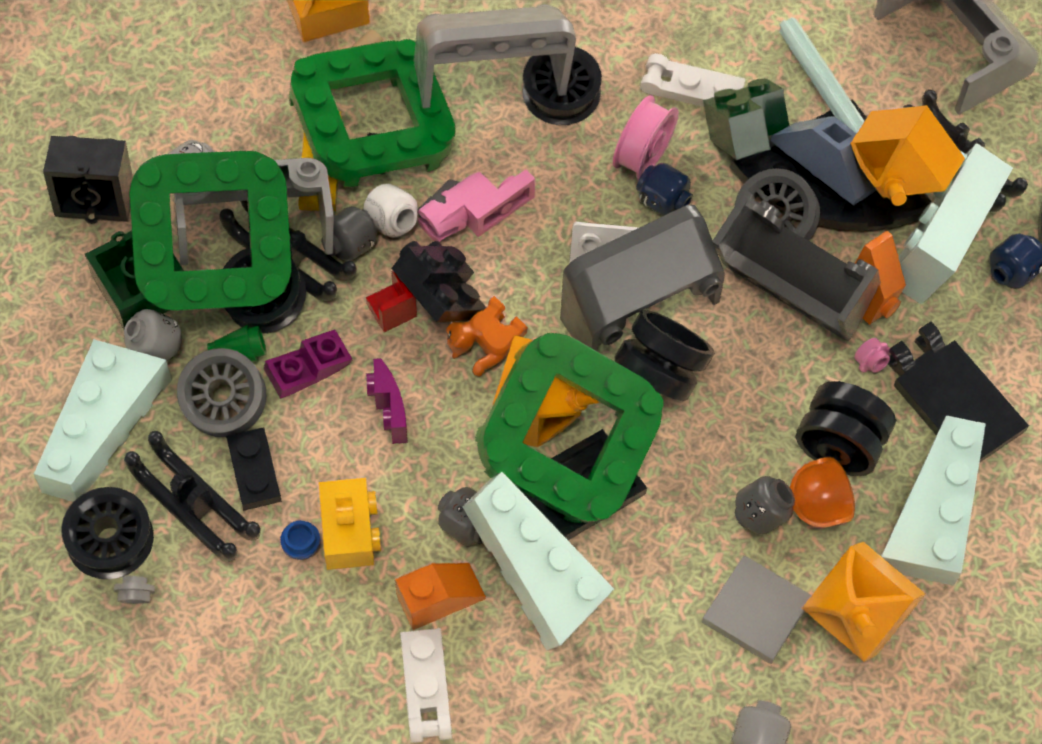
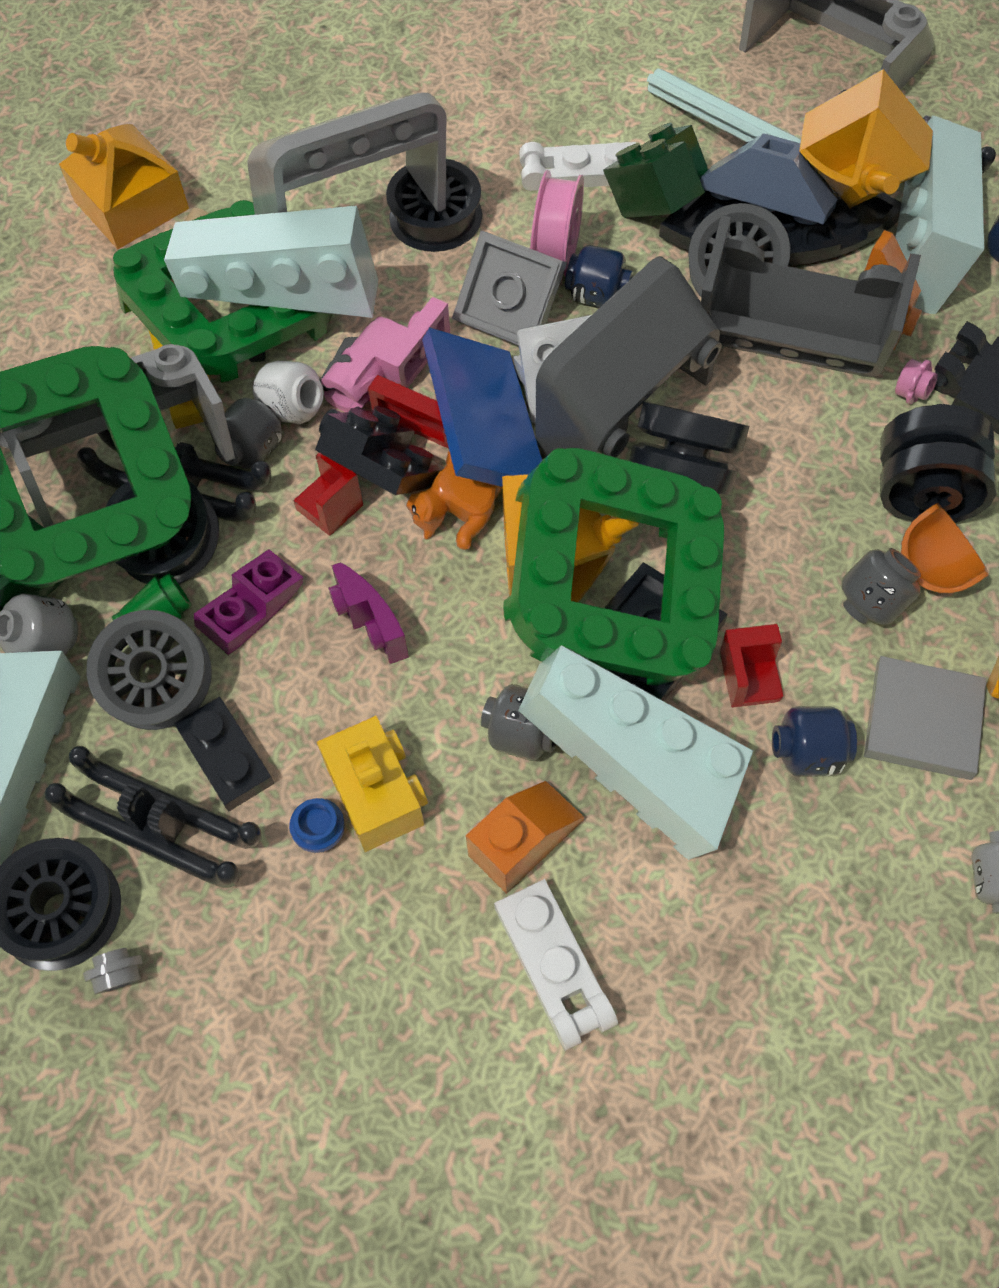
camera: 15 degrees left, 0 degrees up
(415, 109) = (277, 260): none -> light aqua wedge
(480, 257) = (416, 409): none -> red tile
(527, 272) = (480, 408): none -> blue tile
(587, 180) = (507, 287): none -> light grey tile
(648, 531) = (751, 666): none -> red panel
(667, 598) = (815, 741): none -> dark blue head

